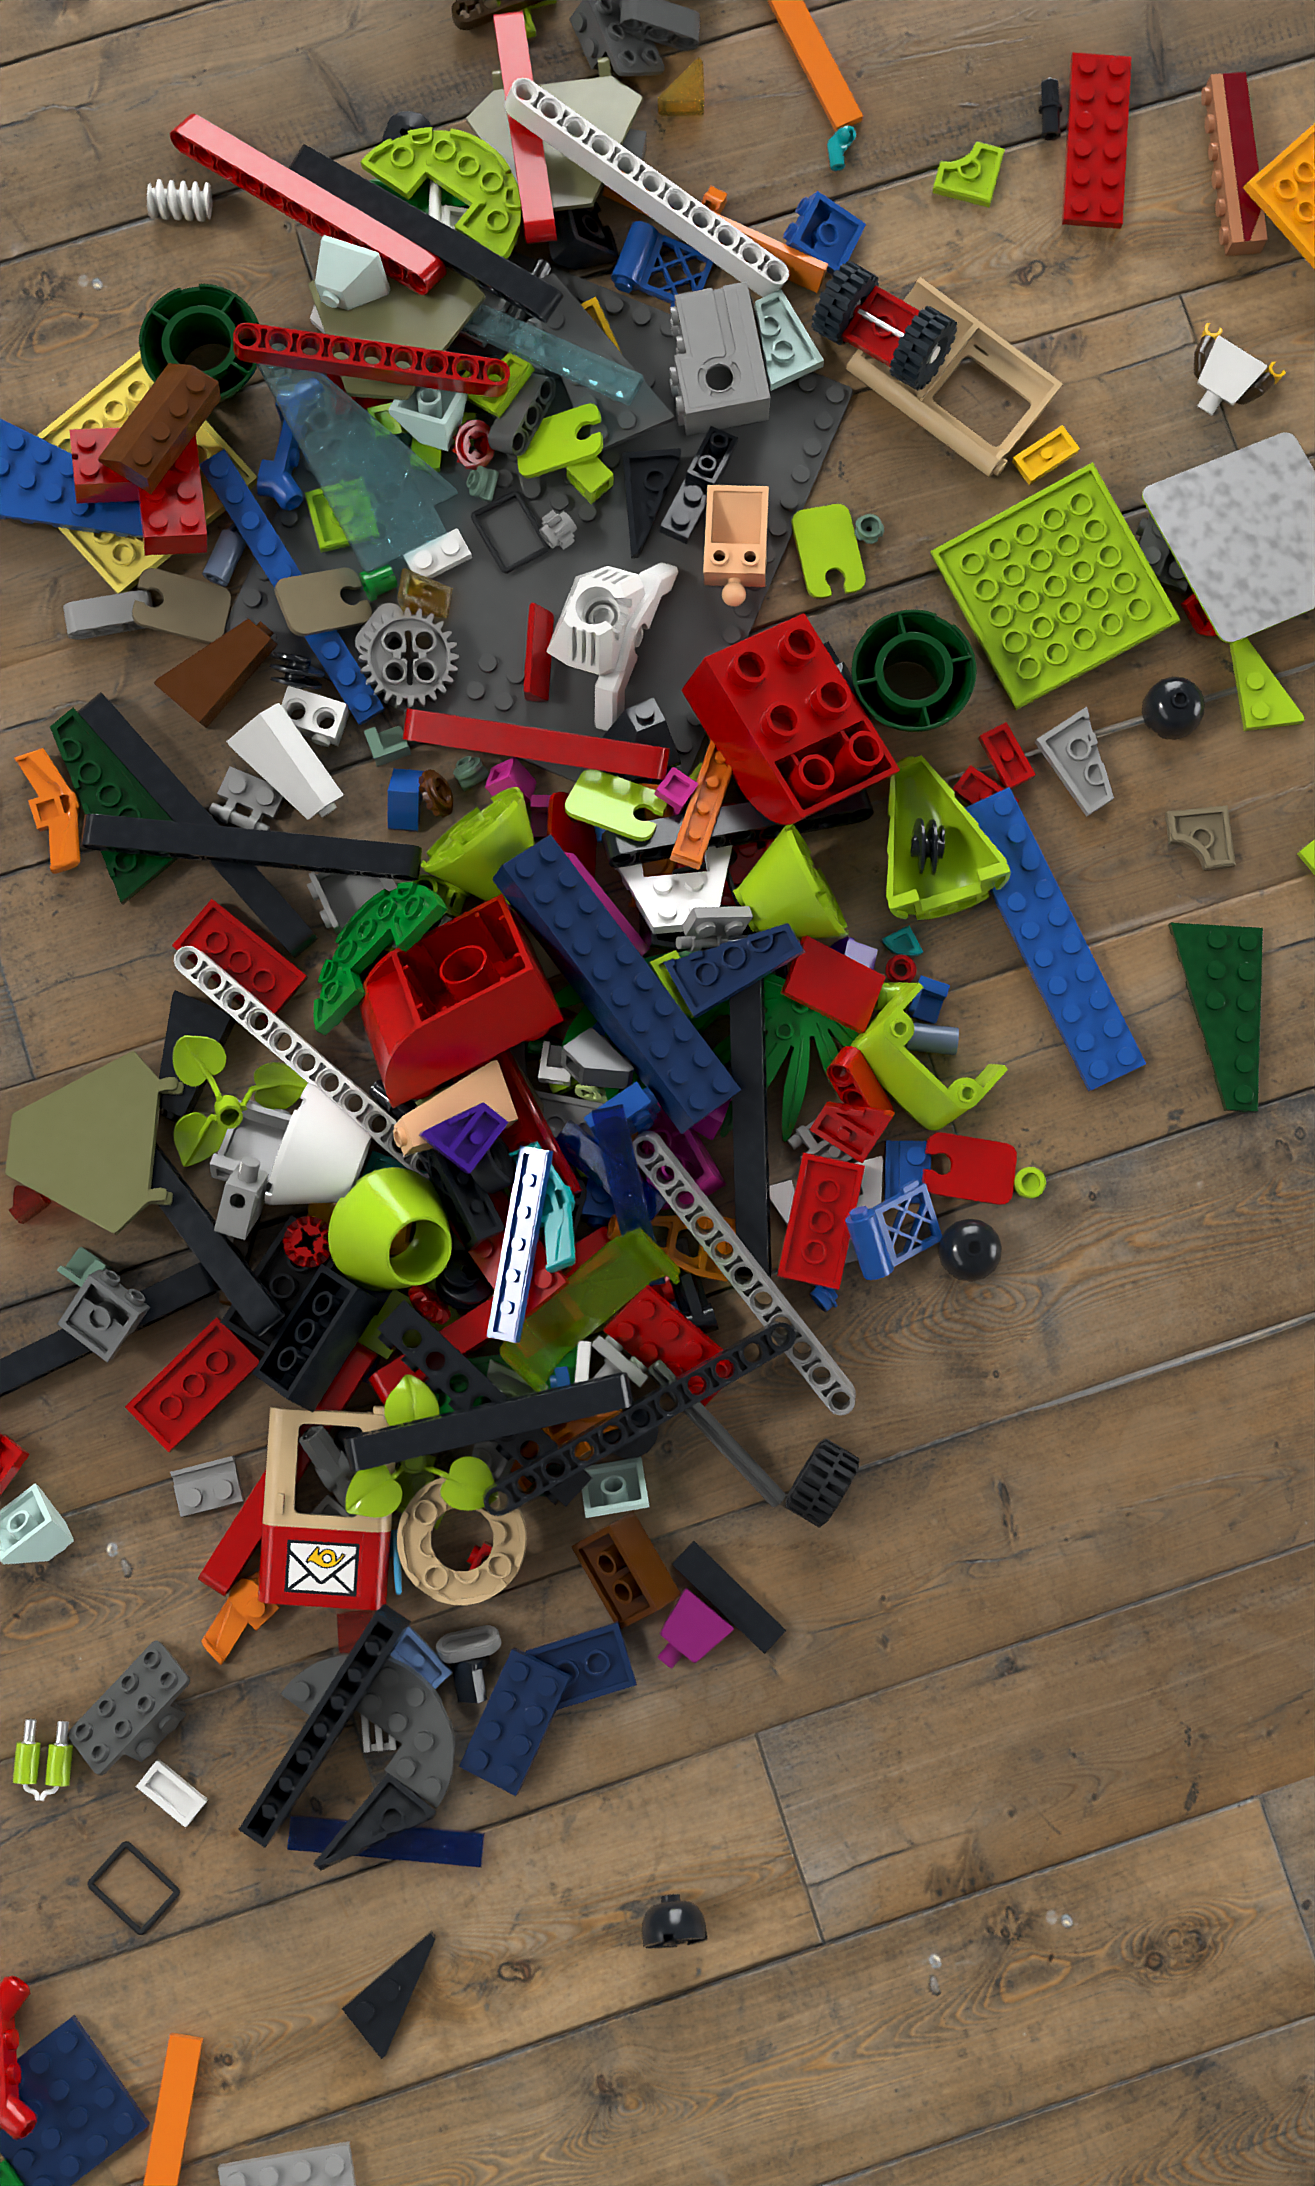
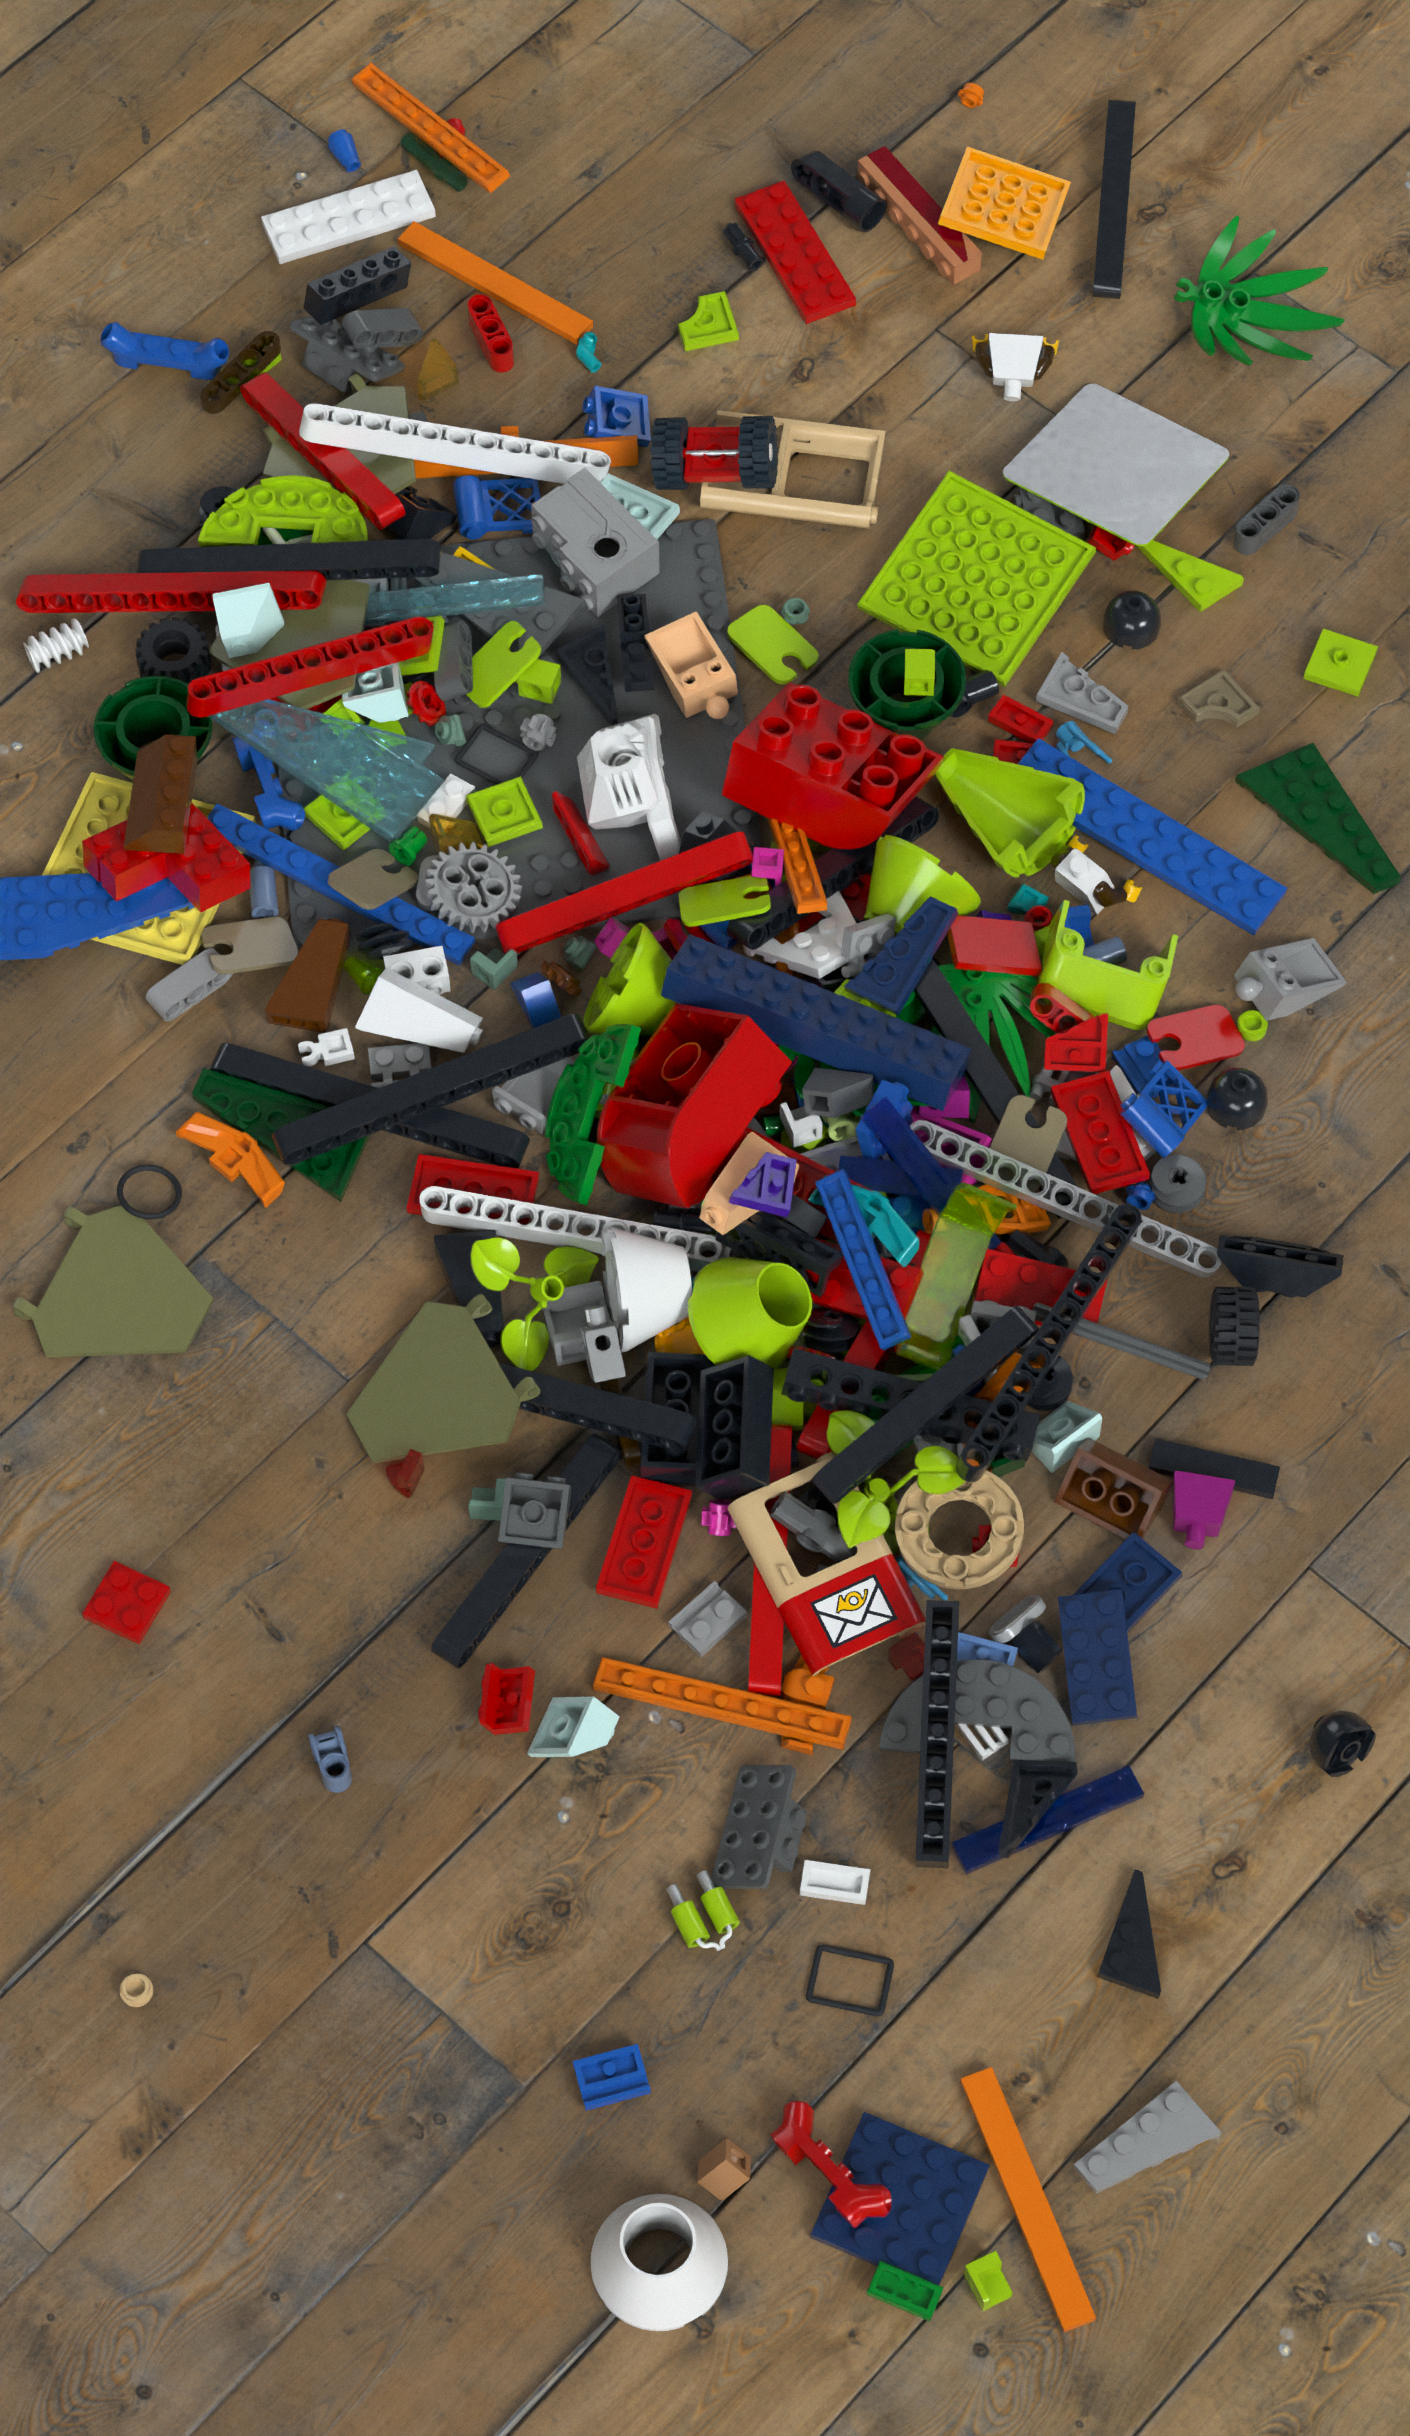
camera: 25 degrees left, 20 degrees down
(171, 1576) = (722, 1703): none -> orange tile
(198, 748) = (332, 1048): none -> white plate
(264, 1398) = (718, 1517): none -> dark pink gear
(266, 691) = (362, 973): none -> clear neon green cone
(272, 248) = (171, 638): none -> black tyre
(294, 1236) = (681, 1373): red gear -> none
(482, 594) = (504, 811): none -> lime plate
(741, 1201) = (1028, 1144): none -> dark tan piece
(759, 66) = (490, 333): none -> red beam
(876, 1316) = (1178, 1170): none -> dark grey piece
(905, 1437) = (1278, 1265): none -> black wedge
(924, 674) = (919, 672): none -> lime panel
(927, 843) = (1000, 808): black piece -> none
(964, 958) = (1088, 880): none -> torso
(986, 702) = (977, 689): none -> black piece
(1045, 455) = (905, 490): yellow plate -> none
(1045, 802) = (1073, 739): none -> dark azure plant
(1089, 1156) = (1287, 978): none -> light grey slope
(1175, 96) = (839, 190): none -> black beam

